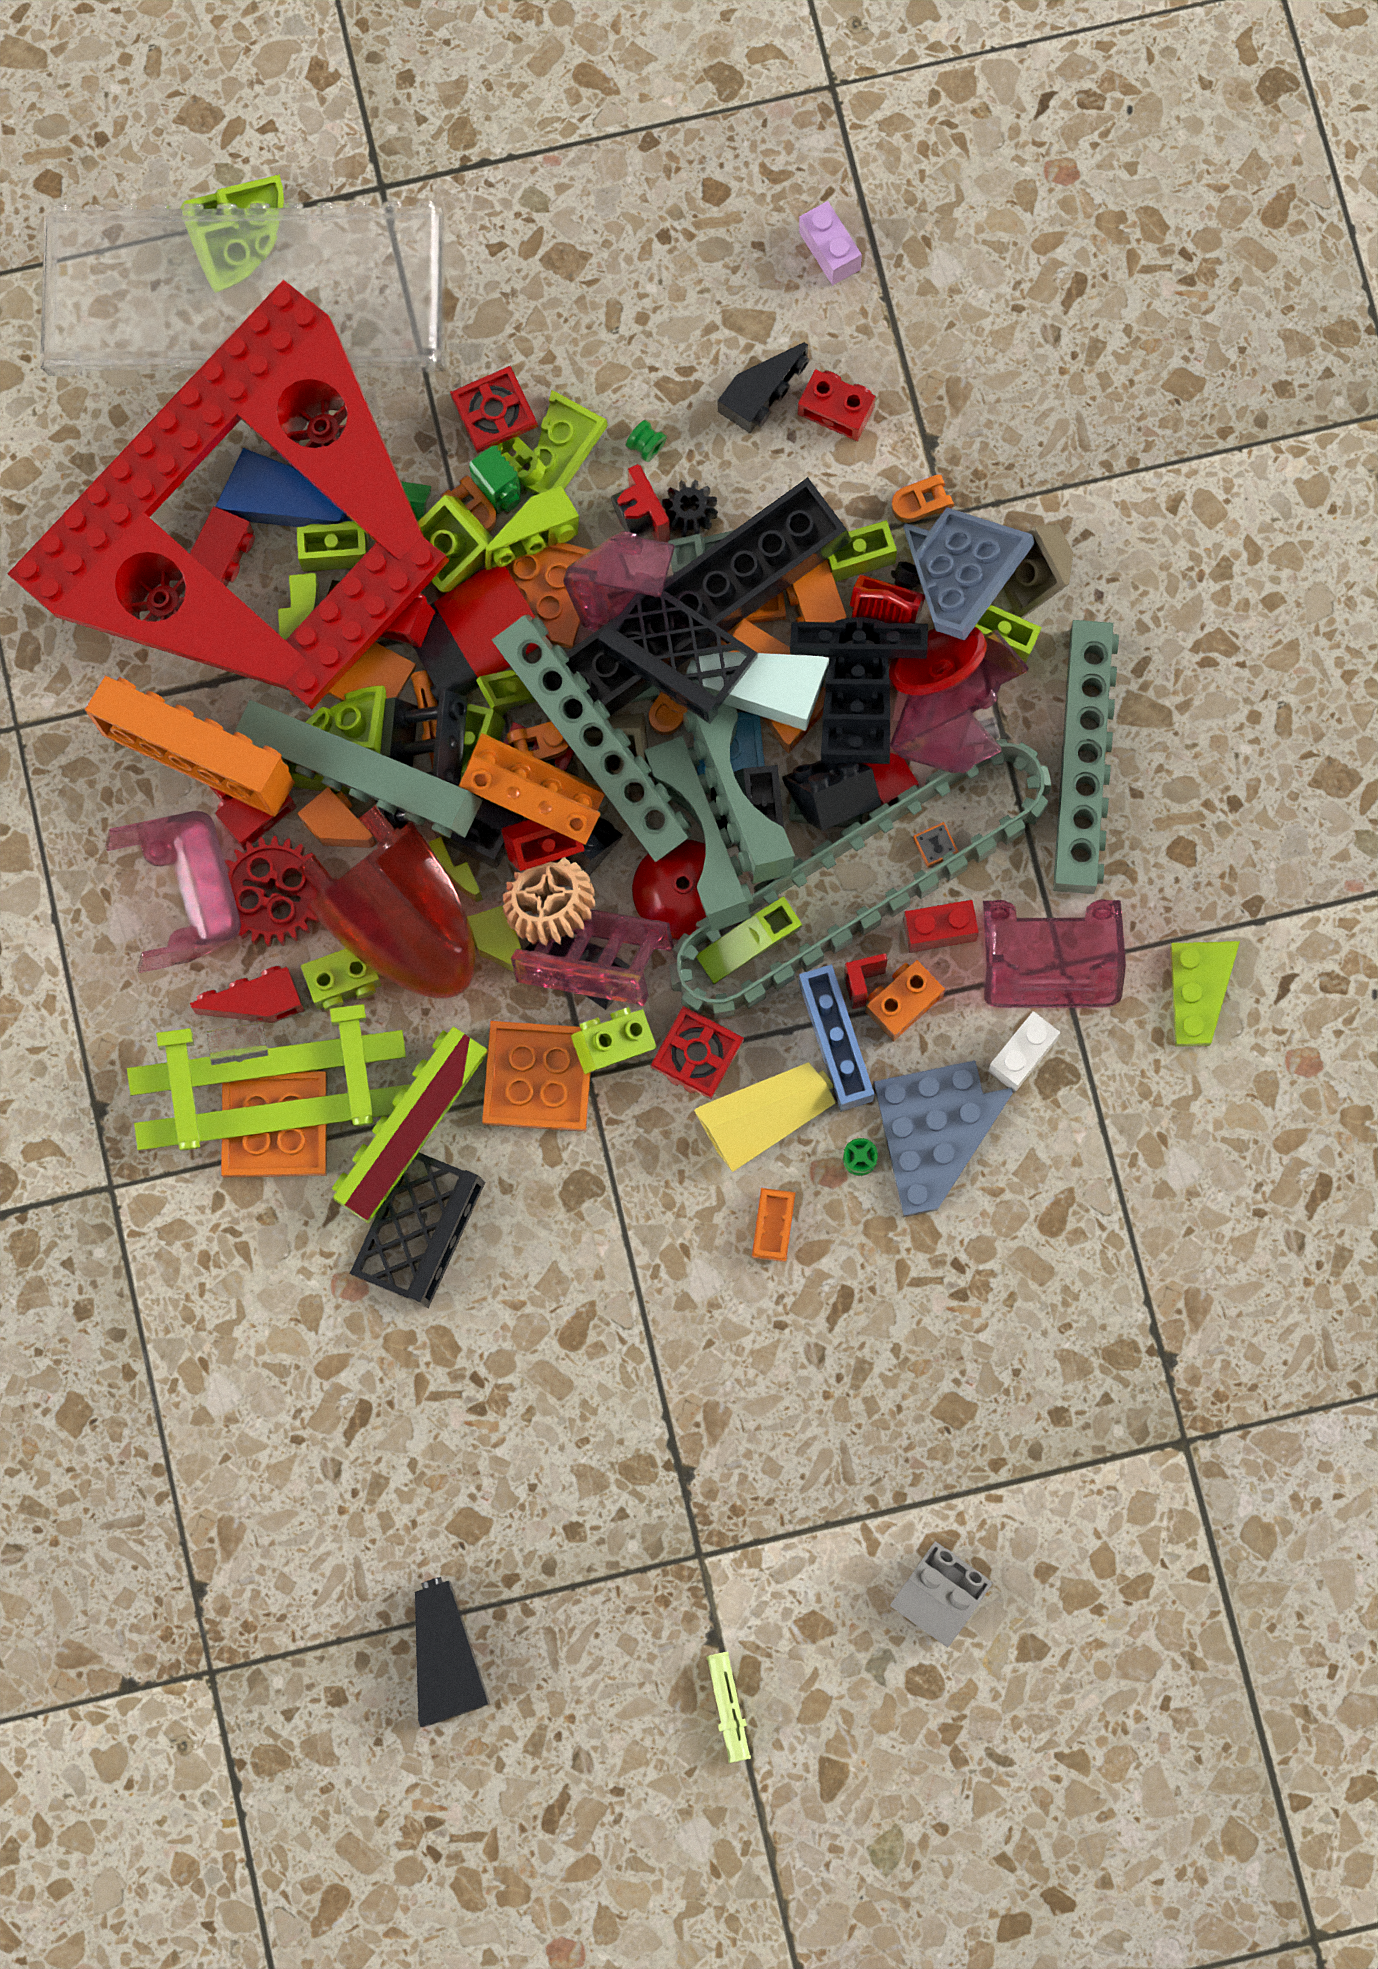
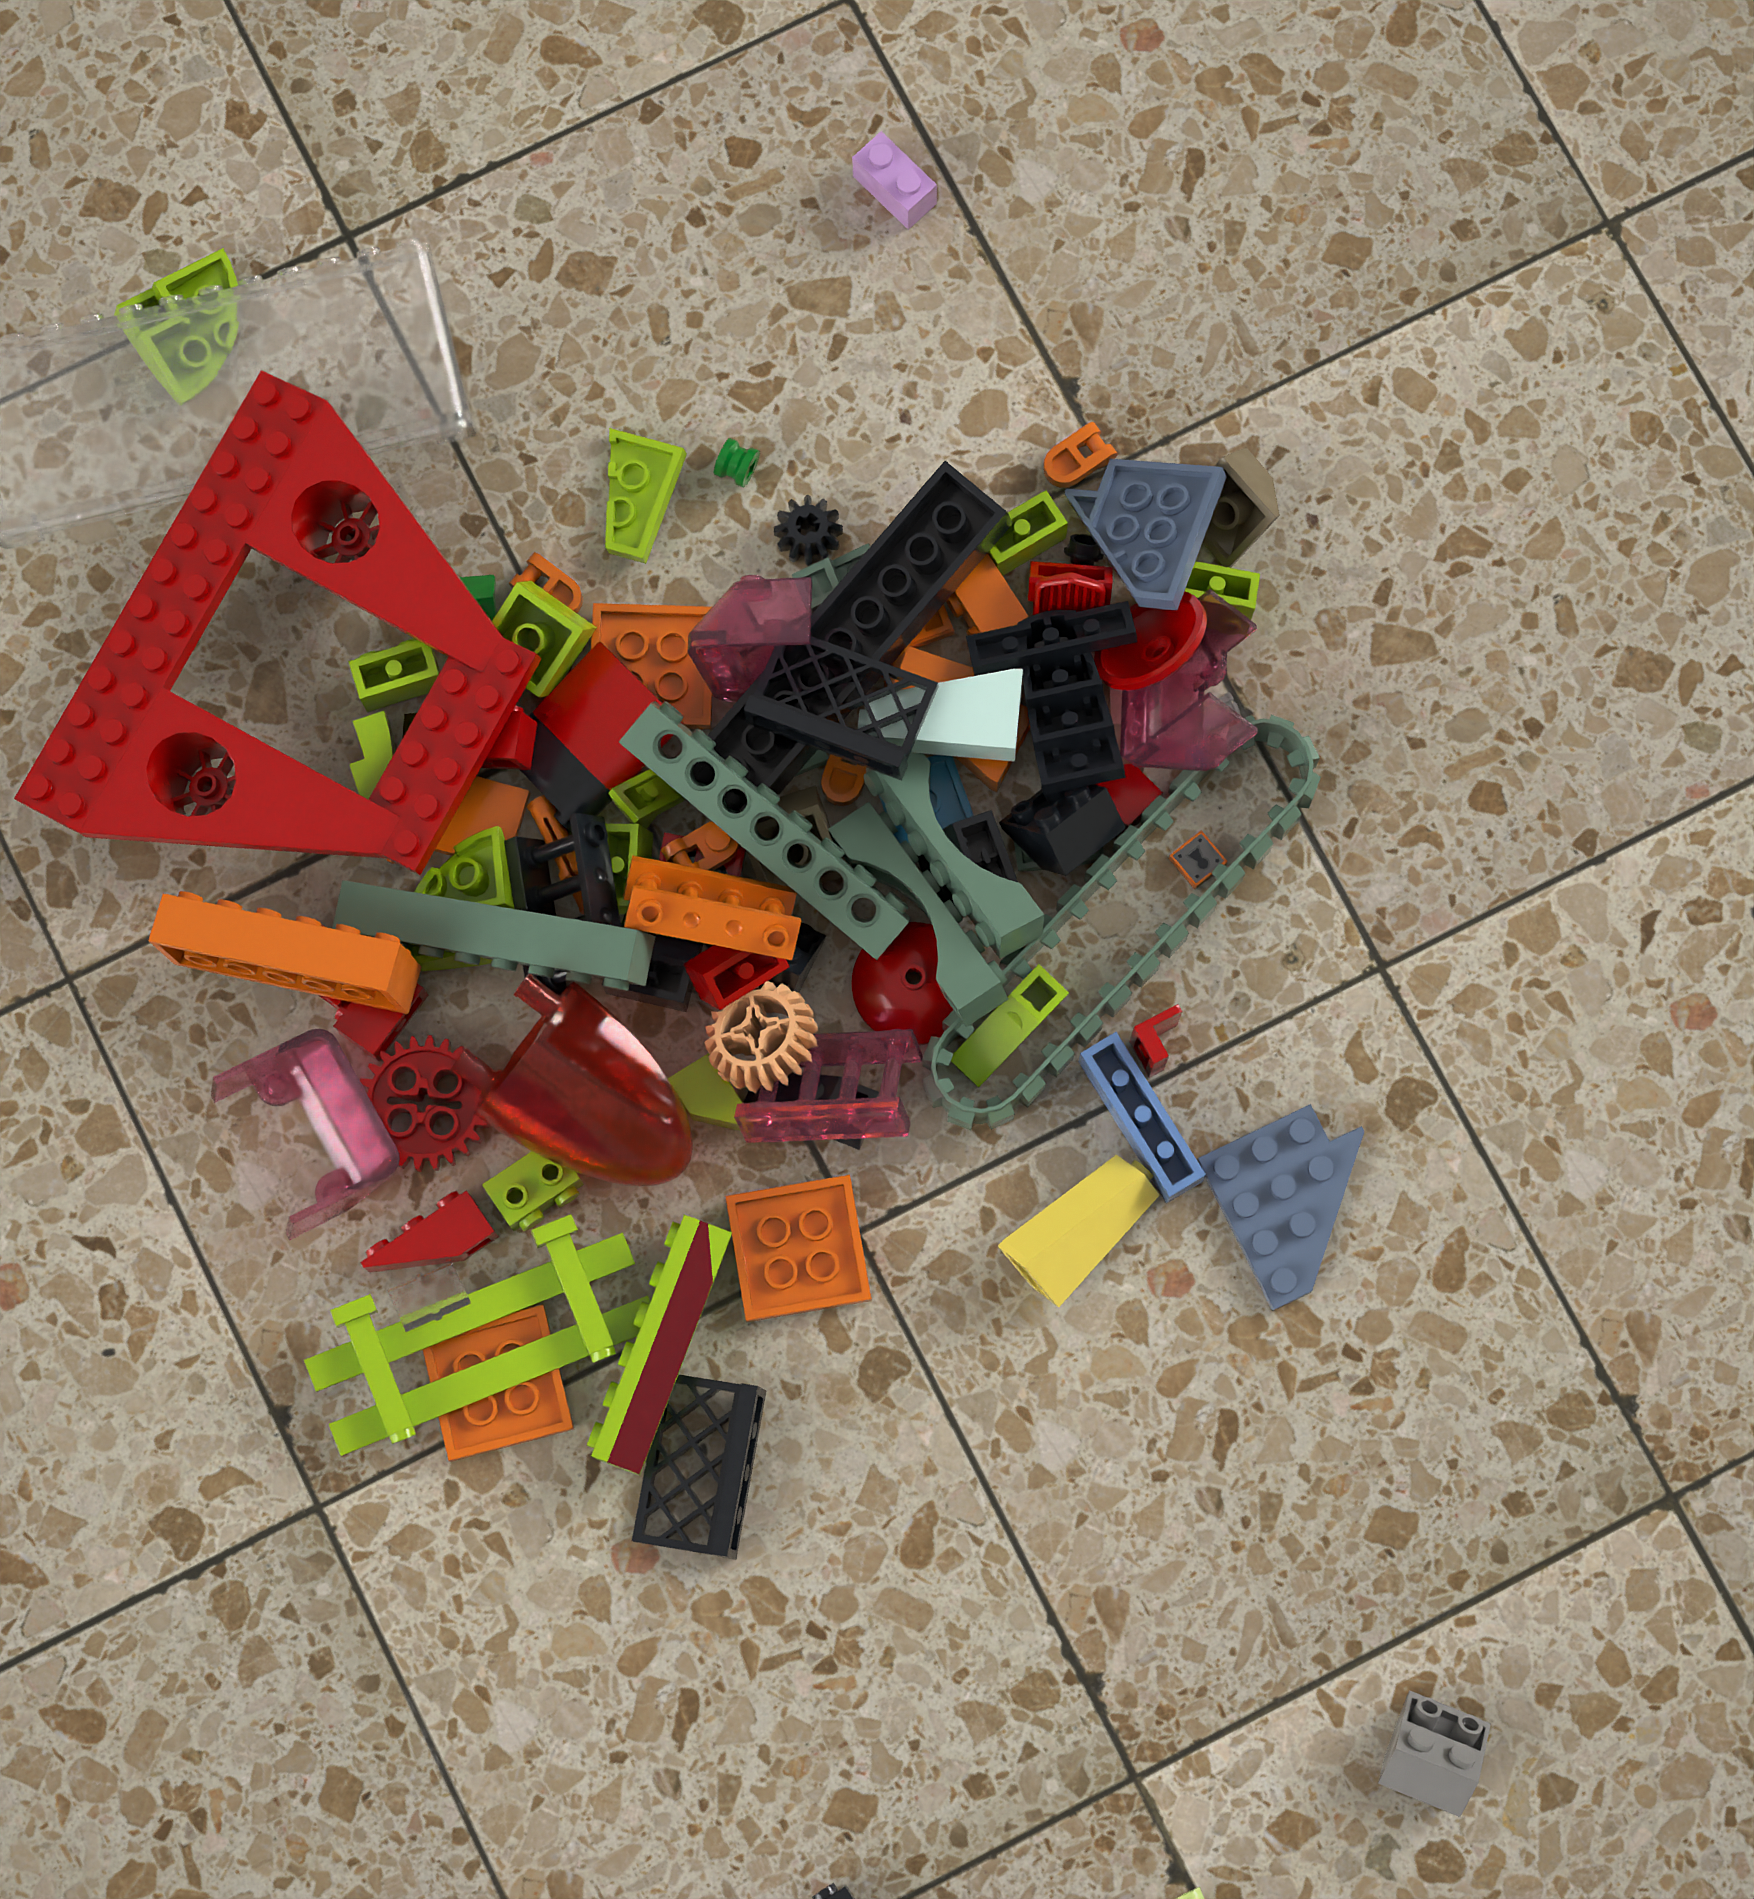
camera: 15 degrees left, 0 degrees up
(223, 544) = (264, 701): red brick -> none
(275, 494) = (311, 628): blue slope -> none
(334, 823) = (478, 1003): orange slope -> none
(460, 875) = (647, 1030): lime slope -> none
(494, 412) = (548, 469): red piece -> none
(496, 479) = (572, 549): green brick -> none
(523, 456) = (595, 514): lime beam -> none
(538, 524) = (636, 590): lime slope -> none
(614, 1040) = (878, 1185): lime brick -> none
(640, 508) = (751, 543): red piece -> none
(697, 1053) = (981, 1177): red piece -> none
(755, 389) = (850, 371): black slope -> none
(773, 1225) = (1122, 1358): orange plate -> none
(836, 404) = (950, 367): red brick -> none
(864, 1152) = (1208, 1245): green wheel -> none
(904, 999) = (1209, 1052): orange brick -> none
(940, 926) = (1230, 954): red brick -> none
(1023, 1051) = (1366, 1080): white brick -> none
(1053, 958) = (1372, 960): clear pink windscreen -> none
(1084, 639) = (1362, 856): sand green brick -> none
(1199, 987) = (1550, 955): lime wing -> none

